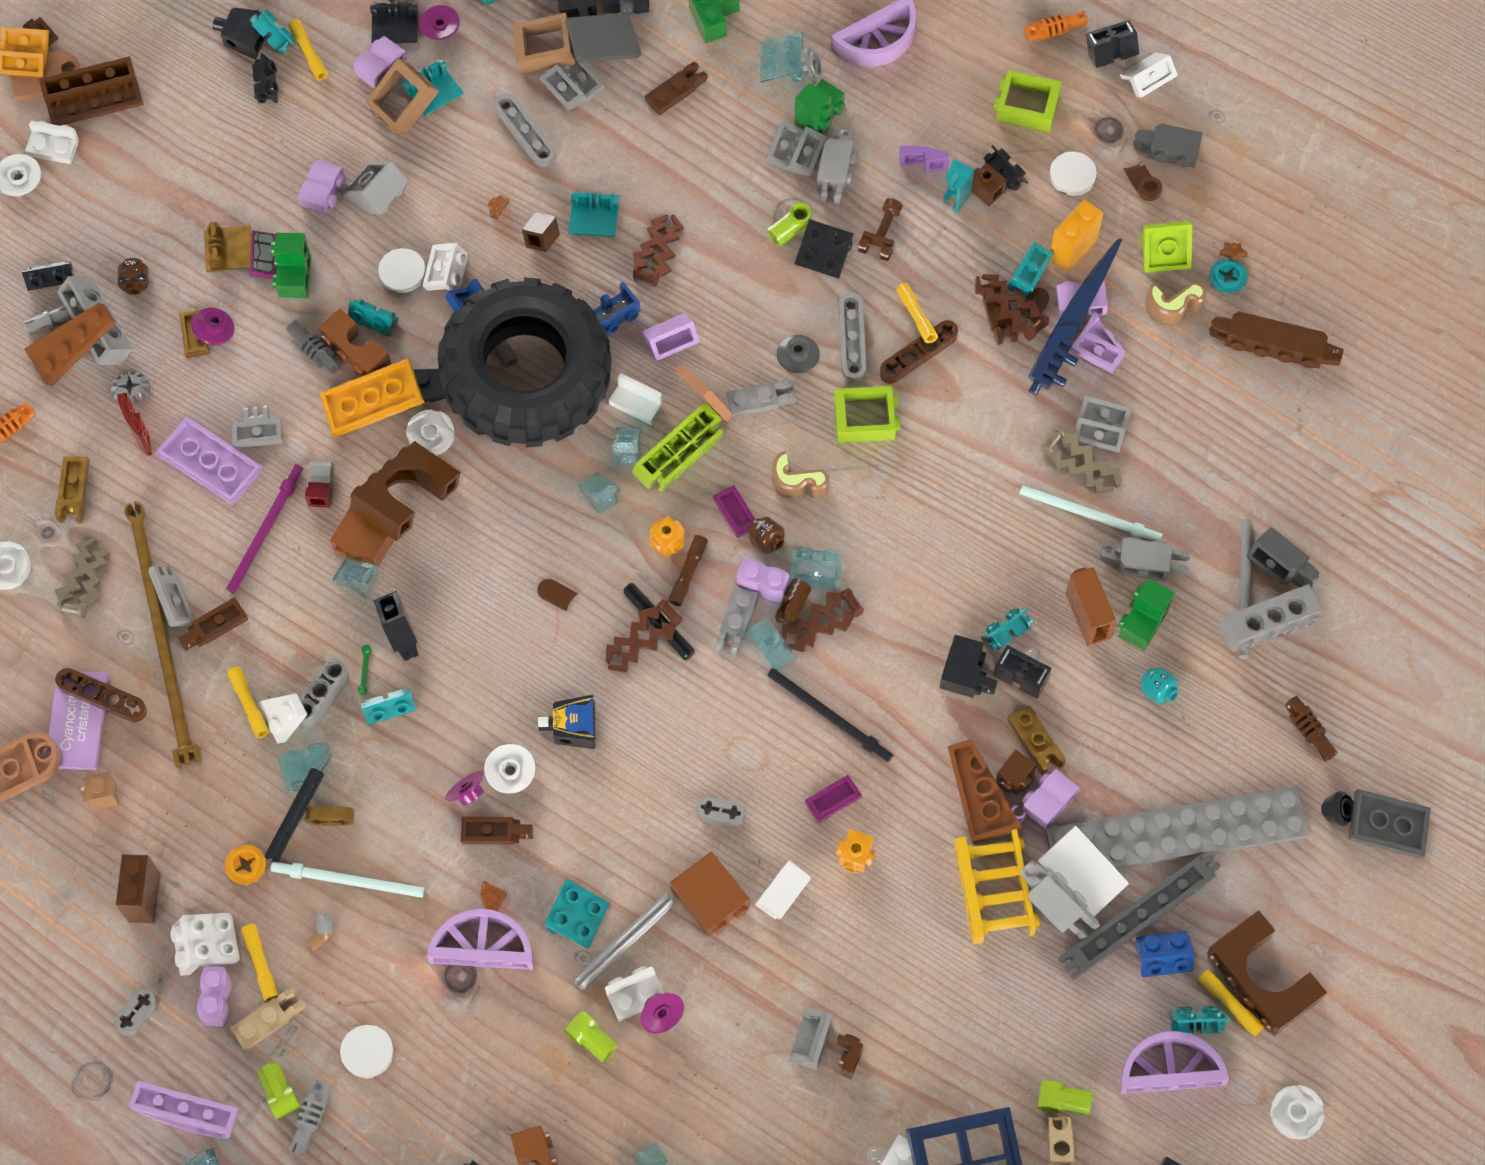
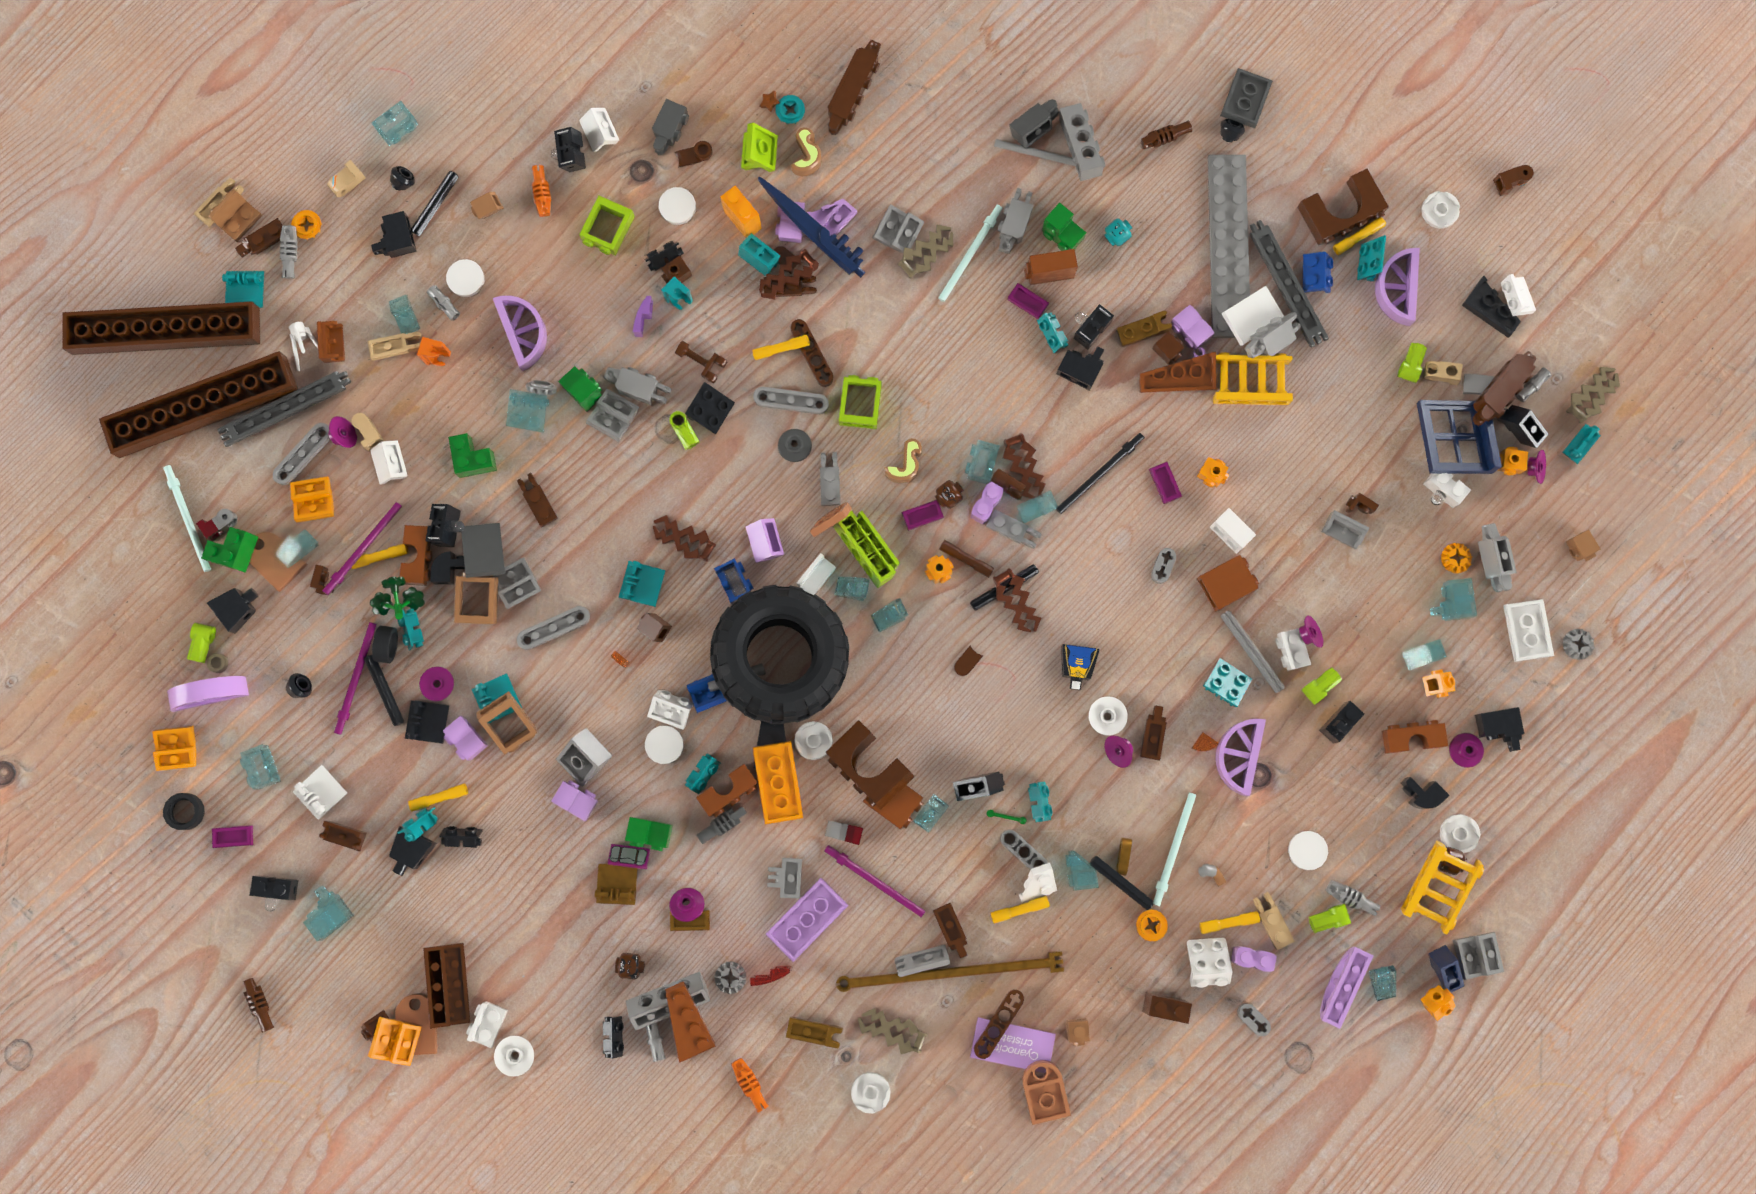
camera: 80 degrees left, 15 degrees up
(544, 1067) = (1341, 722): none -> black hinge
(1043, 593) = (1028, 301): none -> magenta tile

